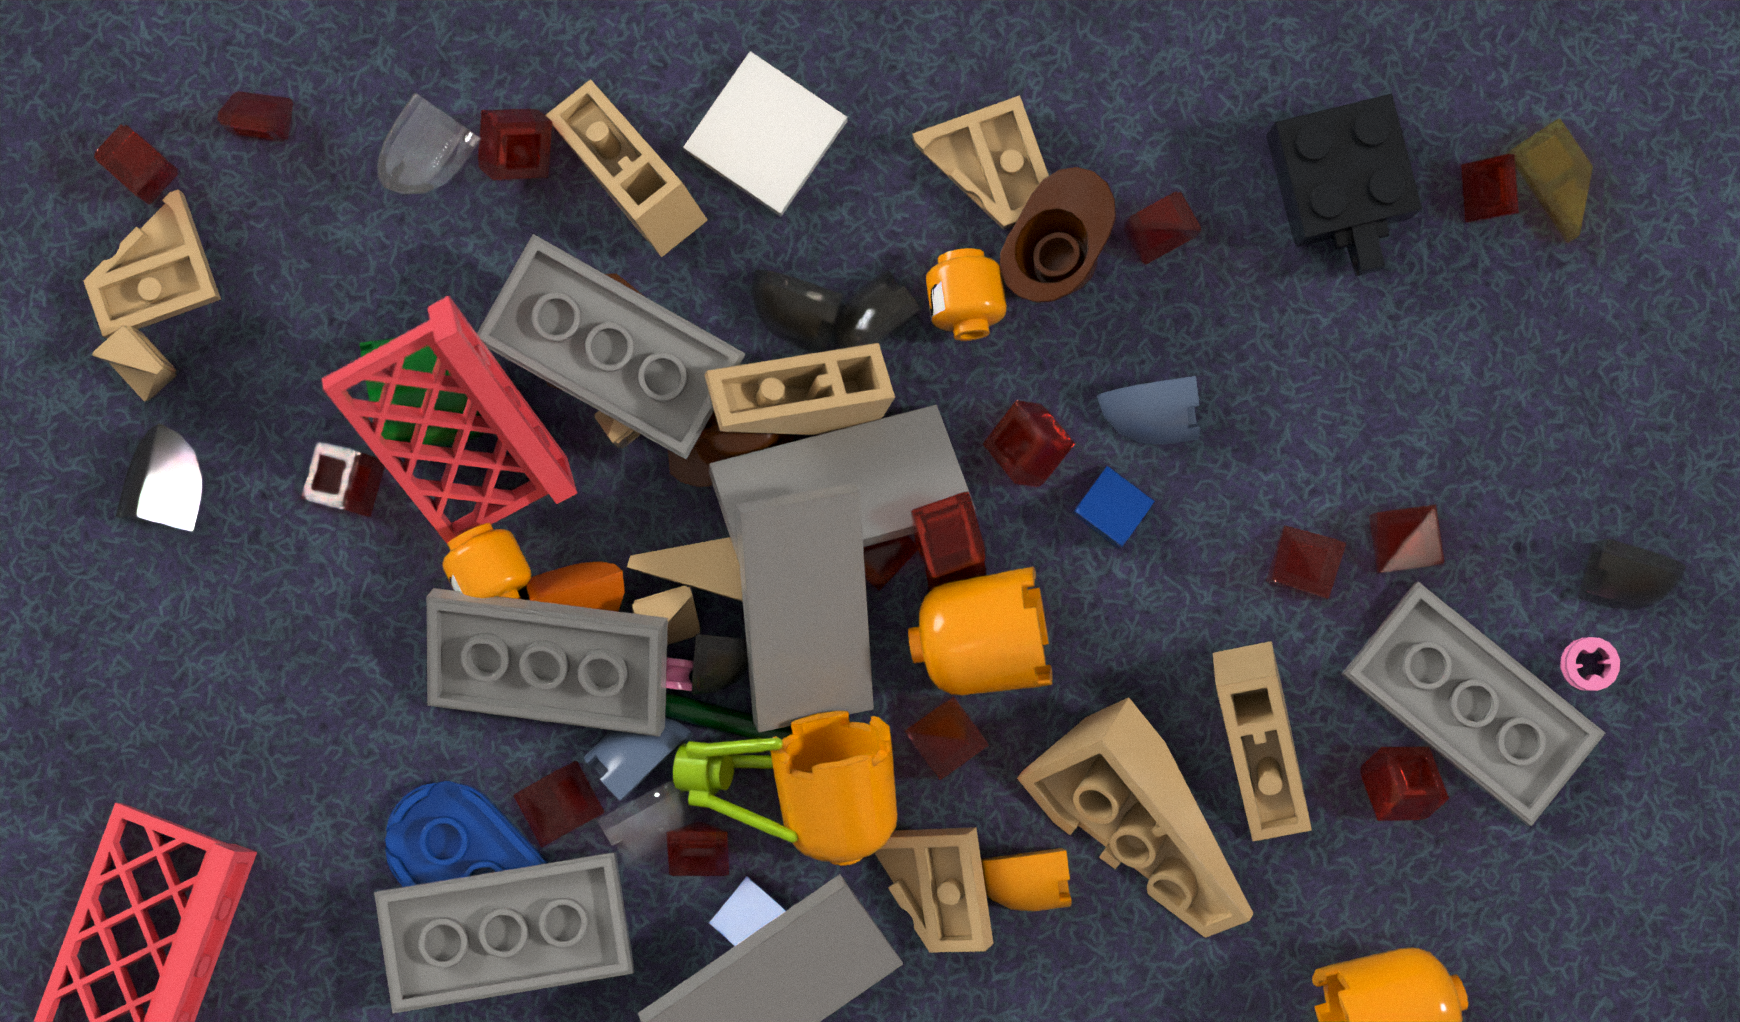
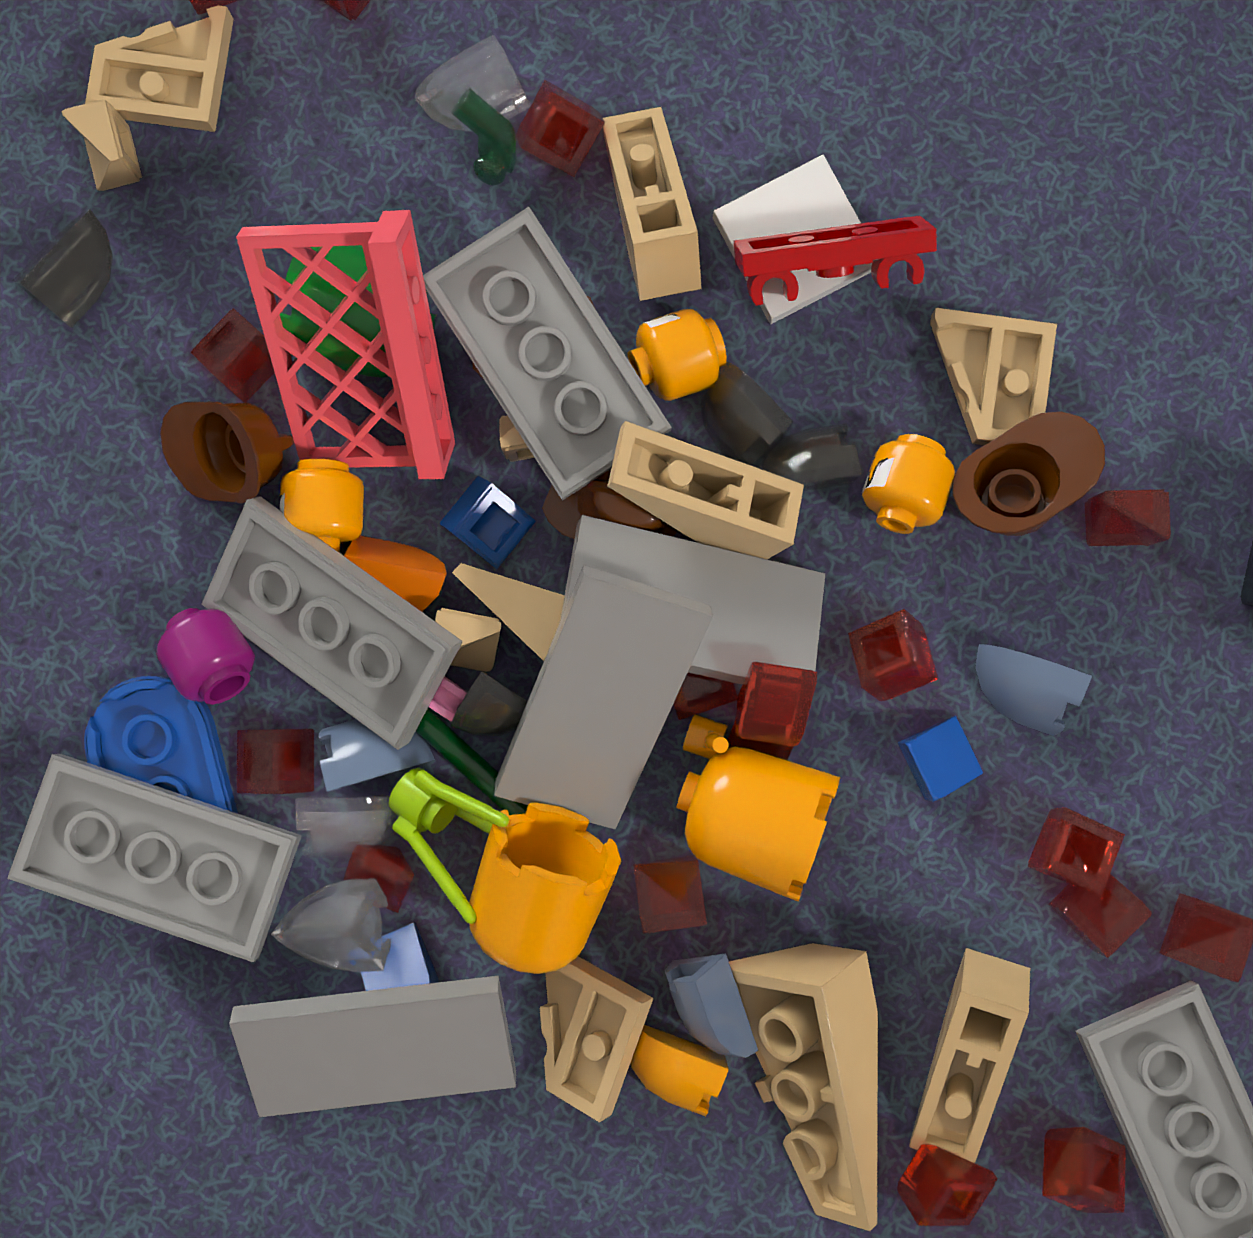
camera: 30 degrees right, 0 degrees up
(377, 566) = (222, 449): none -> reddish brown piece
(456, 744) = (205, 655): none -> magenta head
(465, 182) = (494, 134): none -> clear green arm
(630, 509) = (487, 521): none -> blue slope
(687, 910) = (339, 926): none -> clear brick
(717, 286) = (678, 354): none -> light orange head
(802, 134) = (835, 253): none -> red plate
(907, 593) = (705, 737): none -> light orange hand
(1027, 809) = (711, 1004): none -> sand blue brick
(1261, 524) = (1076, 850): none -> clear red slope
(1296, 857) = (944, 1187): none -> clear red slope

